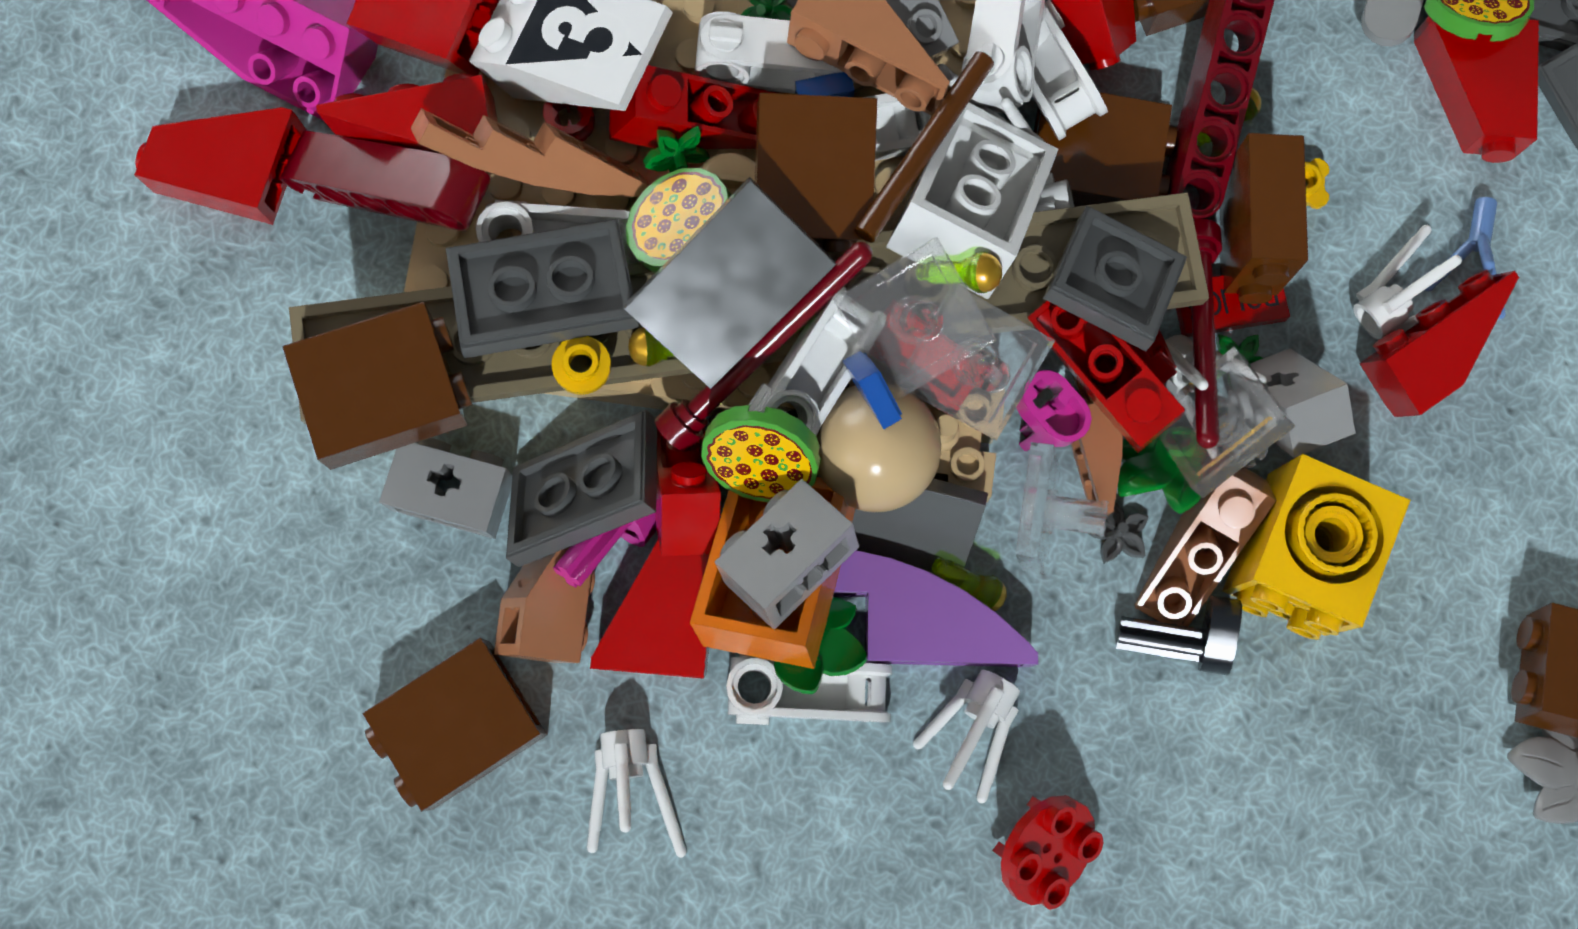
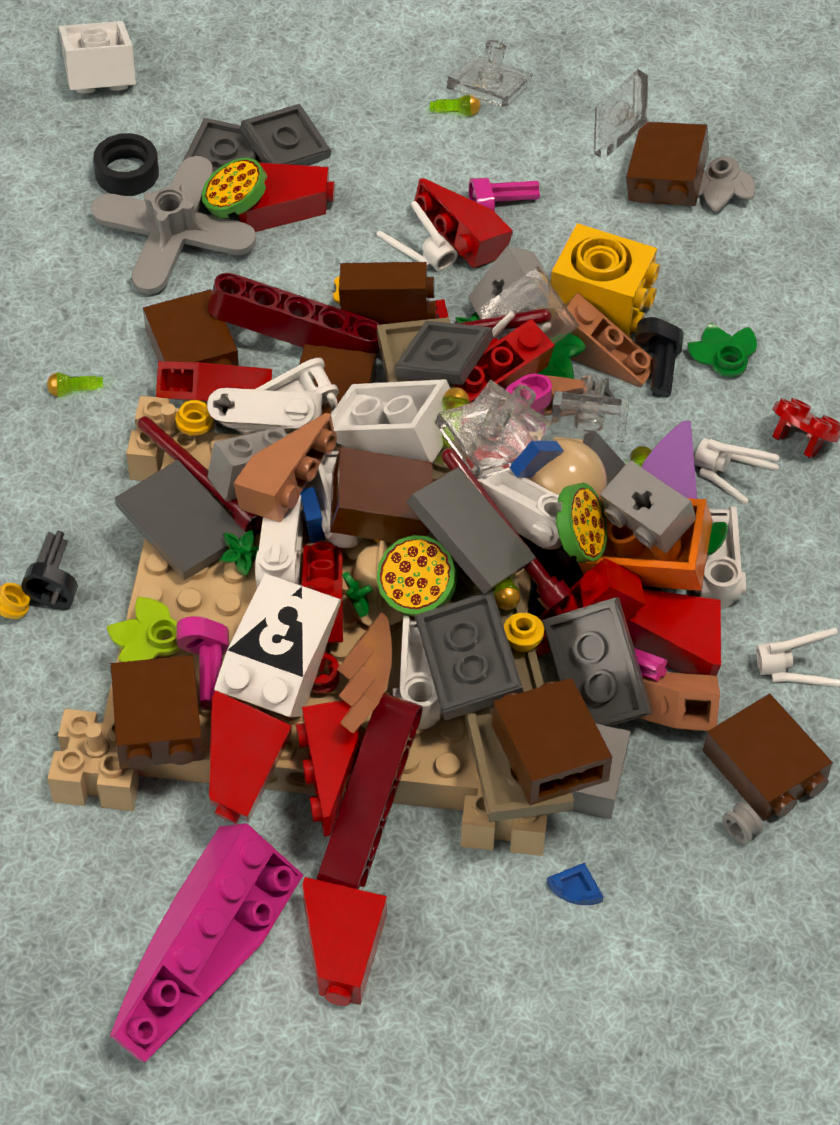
camera: 90 degrees left, 25 degrees down
(289, 457) = (576, 885): none -> blue tile
(357, 680) = (742, 823): none -> light grey bush
(924, 147) = (370, 432): reddish brown bar -> none
(1216, 739) = (719, 347): none -> green plate
(1479, 238) = (389, 206): medium blue plant -> none
(1516, 385) = (488, 193): none -> dark pink piece

